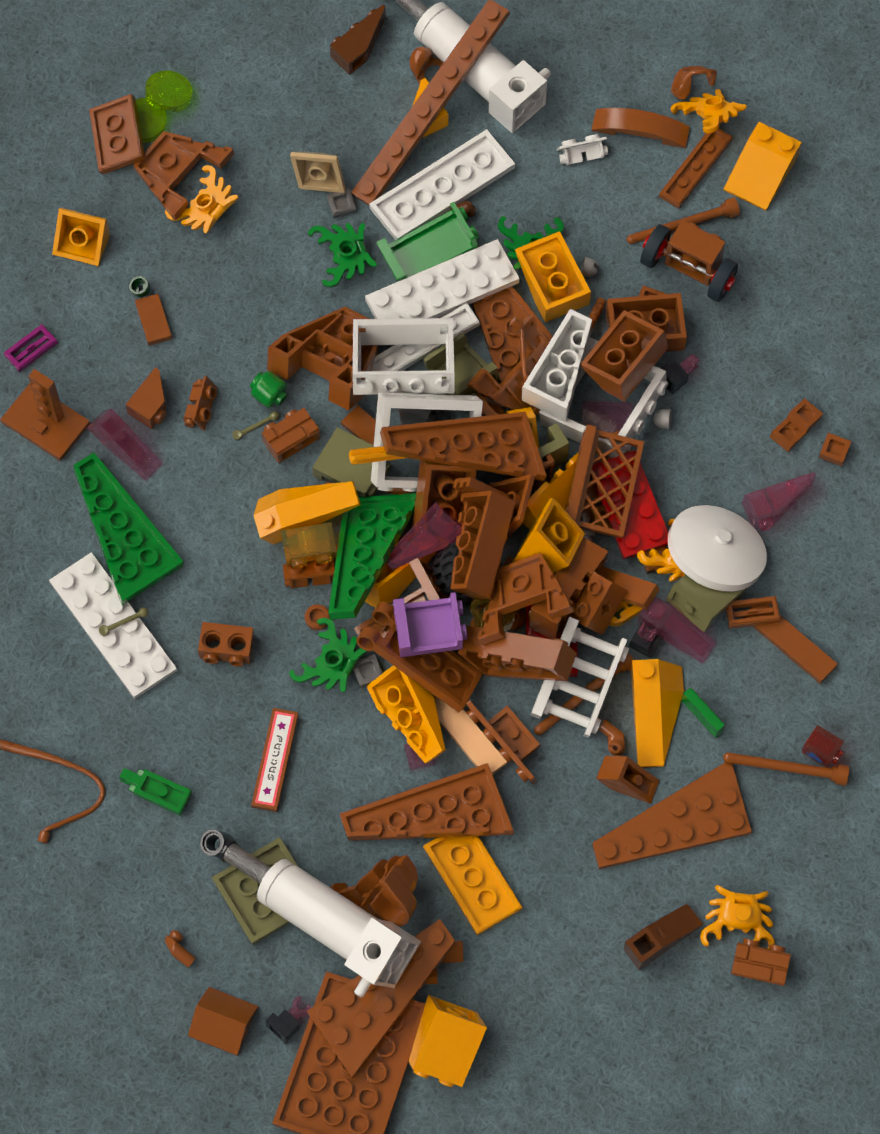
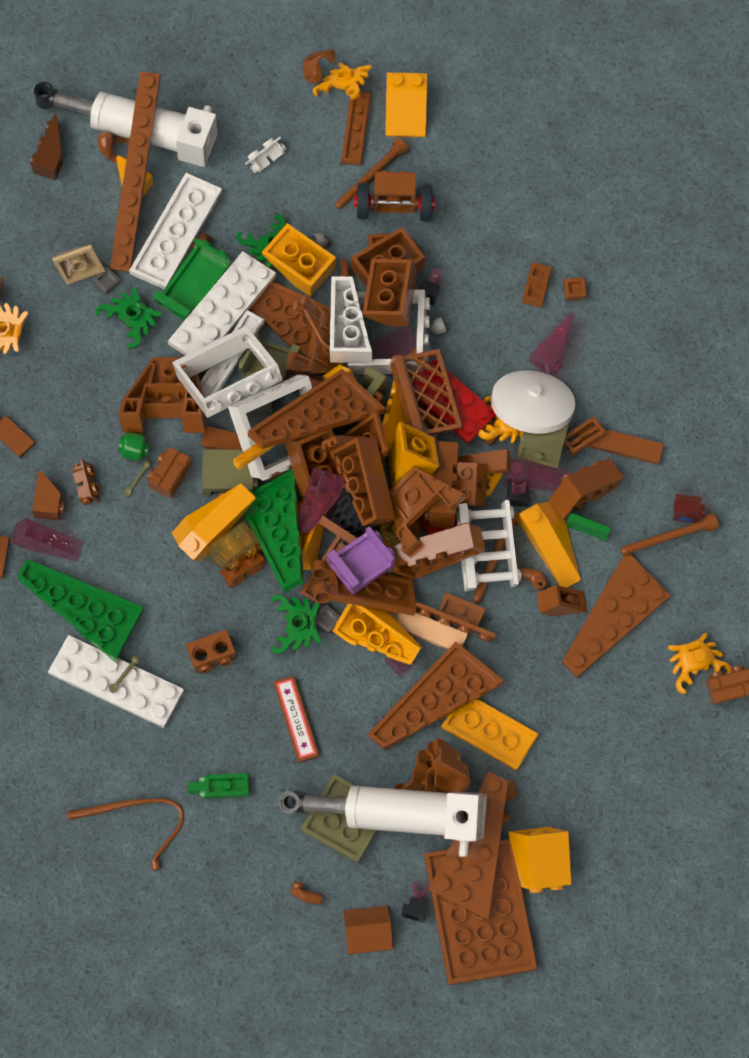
camera: 30 degrees left, 0 degrees up
(314, 613) = (263, 598): dark orange tile -> none
(641, 124) = (298, 115): dark orange slope -> none
(661, 936) = (650, 703): reddish brown slope -> none
(723, 665) = (585, 485): none -> dark orange wedge

